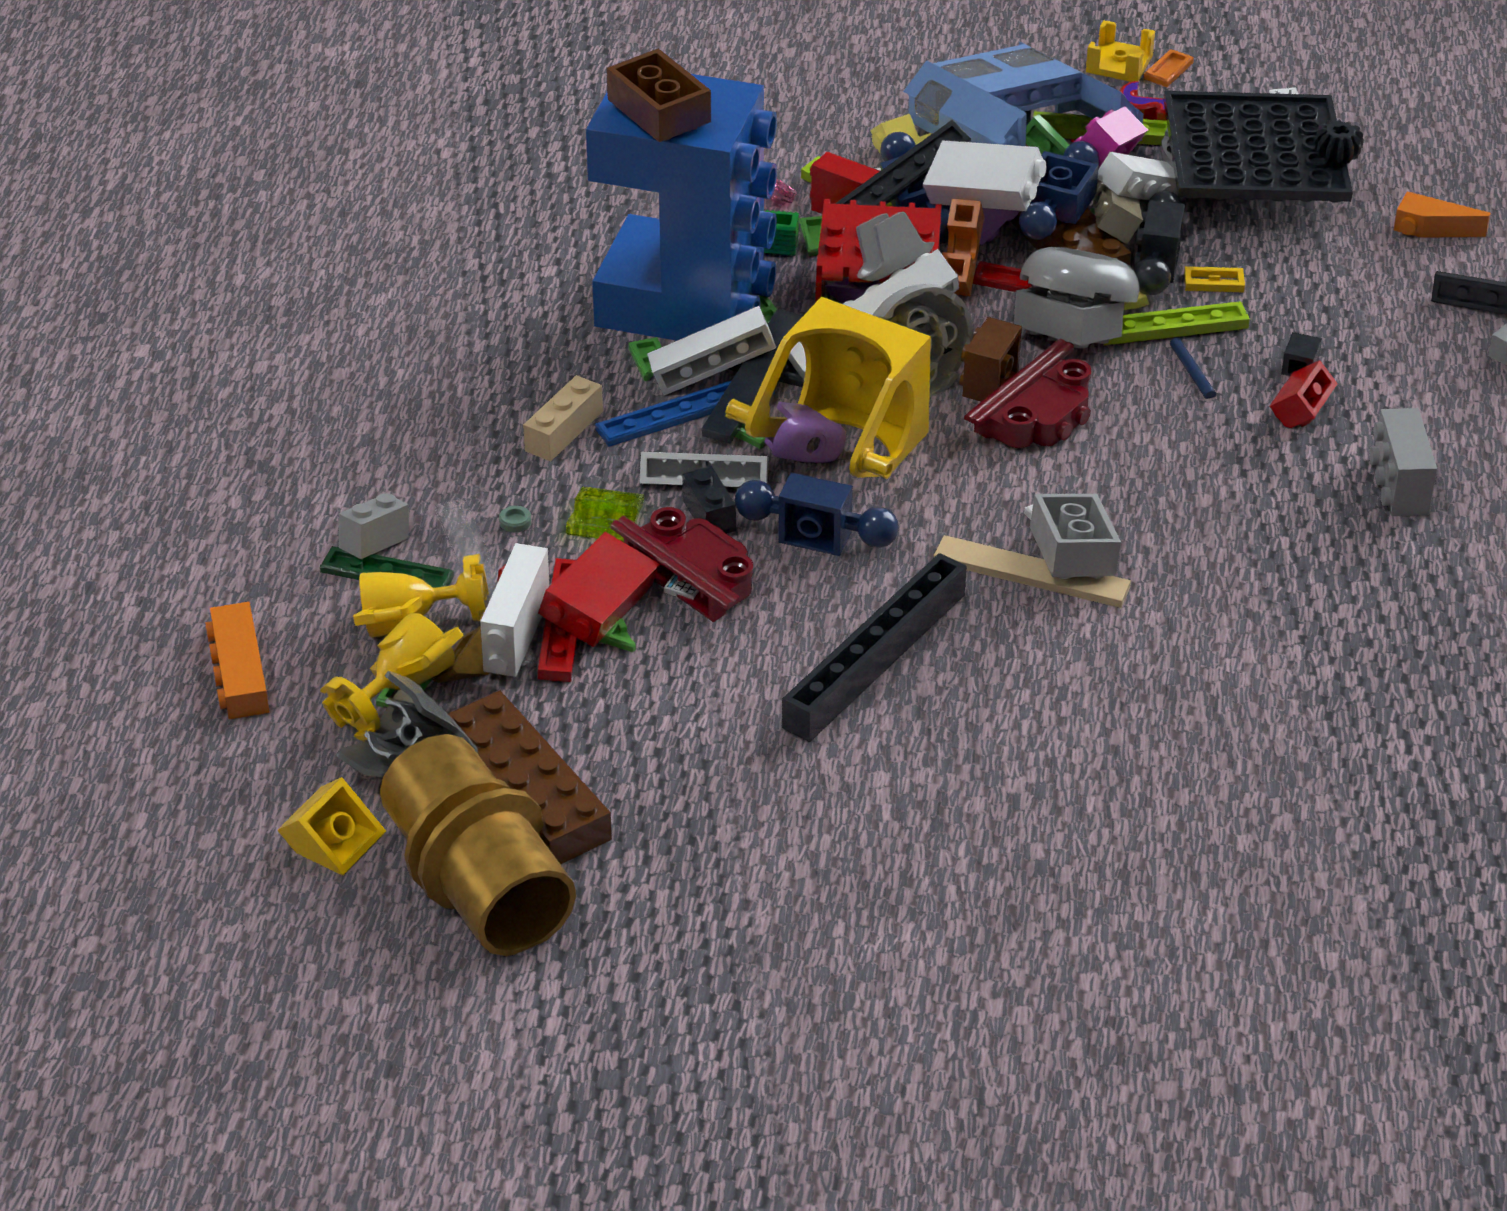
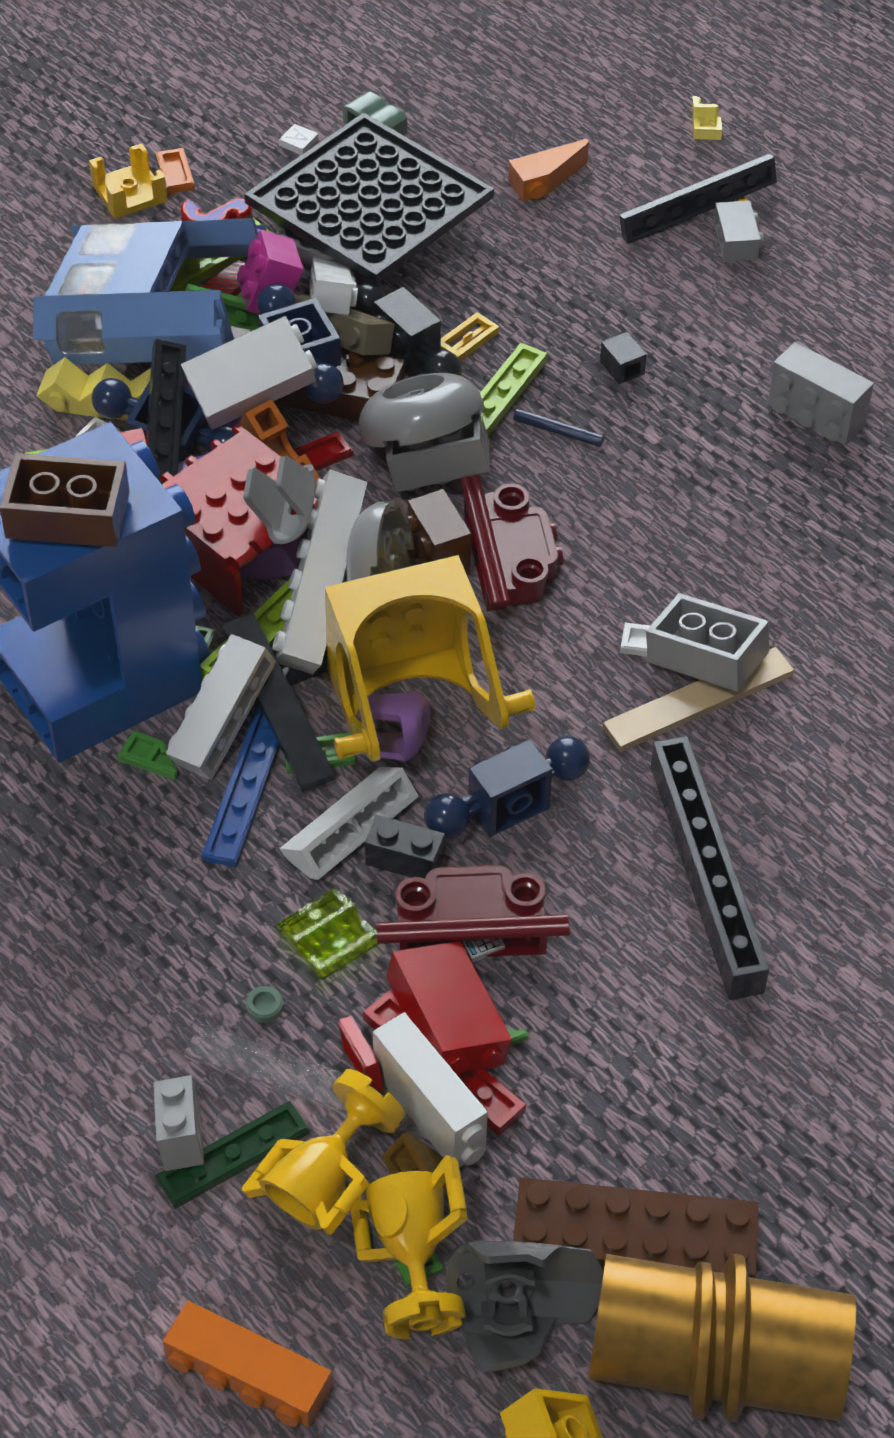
camera: 50 degrees left, 10 degrees up
(563, 418) = (177, 874): tan brick -> none
(1303, 395) = (675, 390): red brick -> none
(1338, 141) = (438, 150): black gear -> none
(1360, 111) = (378, 109): none -> sand green brick

